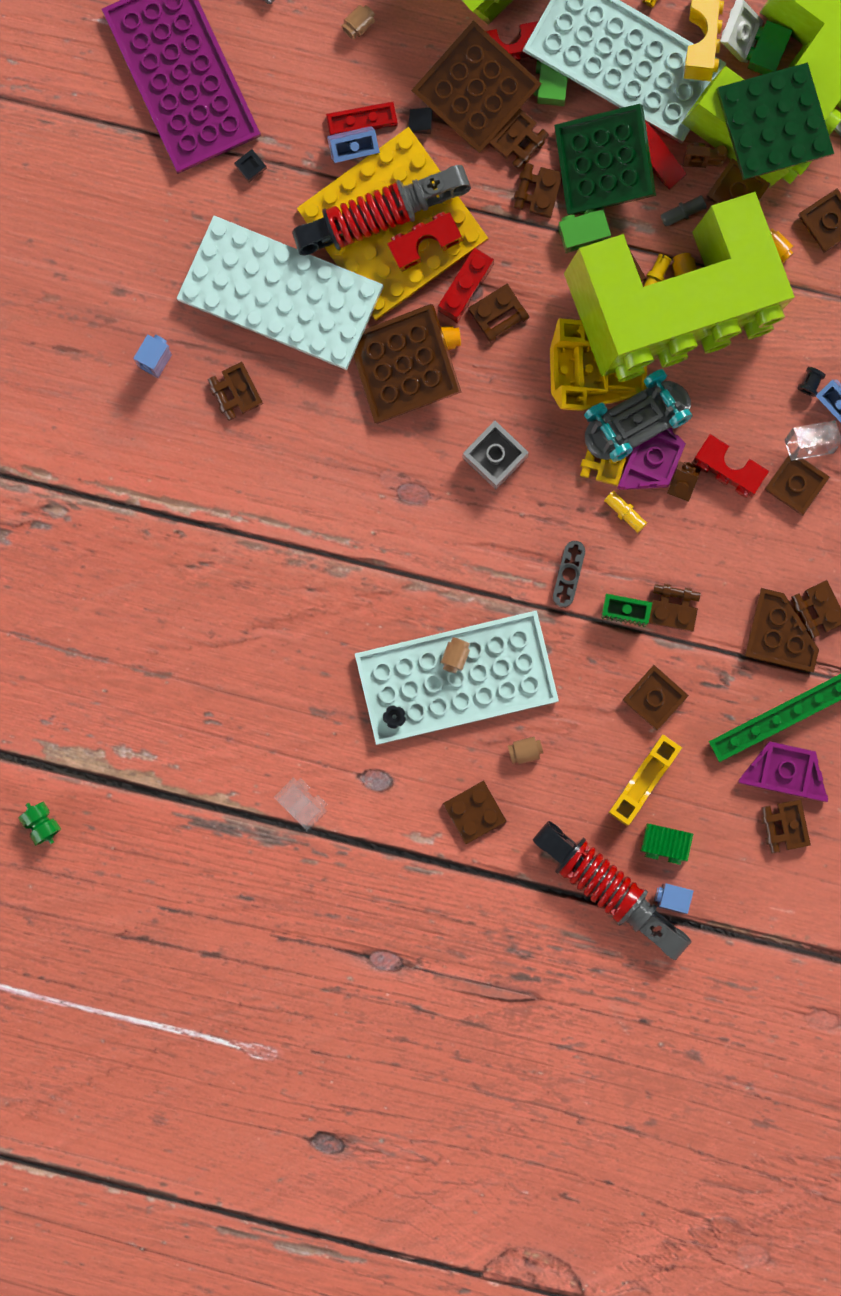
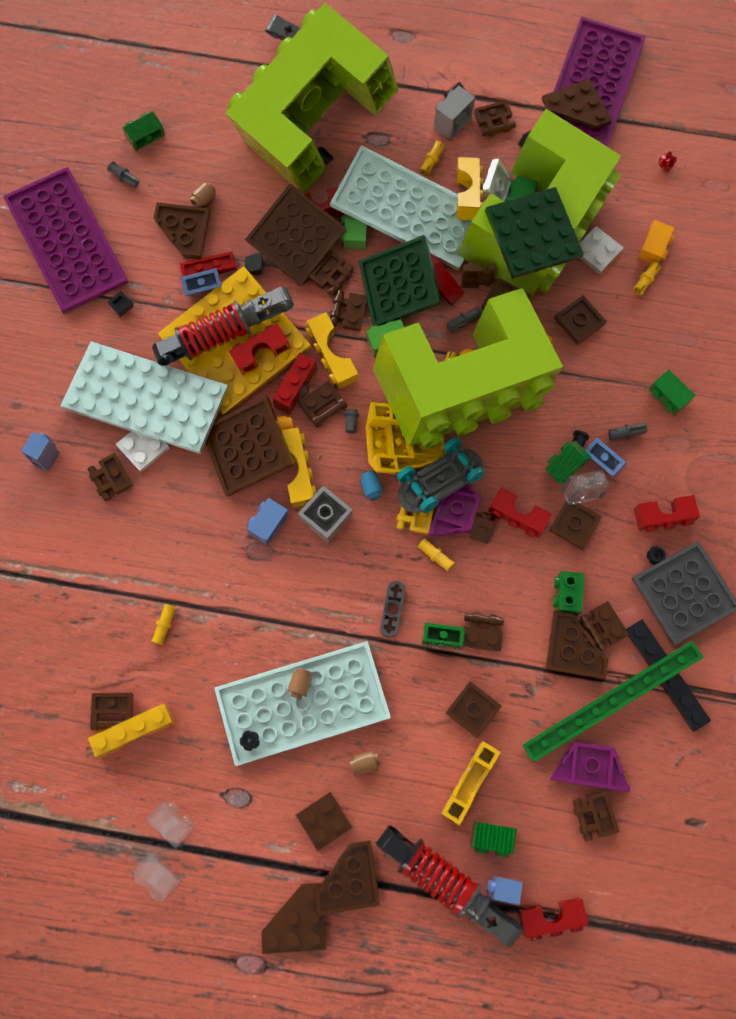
camera: 10 degrees left, 10 degrees down
(235, 665) = (110, 704): none -> reddish brown plate
(258, 696) = (130, 730): none -> yellow arch
(273, 358) = (141, 449): none -> white plate
(283, 861) = (156, 877): none -> clear brick
(297, 575) = (163, 624): none -> yellow pin
(332, 63) = (184, 227): none -> reddish brown plate
(424, 458) = (267, 521): none -> medium blue brick
(440, 920) = (296, 925): none -> reddish brown plate
(466, 422) = (300, 488): none -> yellow arch
(500, 880) = (350, 882): none -> reddish brown plate
(524, 270) = (341, 369): none -> yellow arch
(533, 337) = (351, 421): none -> dark grey pin
(553, 421) = (371, 485): none -> dark azure brick
(747, 933) = (571, 917): none -> red arch
(781, 567) = (569, 592): none -> green brick
(795, 407) = (567, 462): none -> green brick

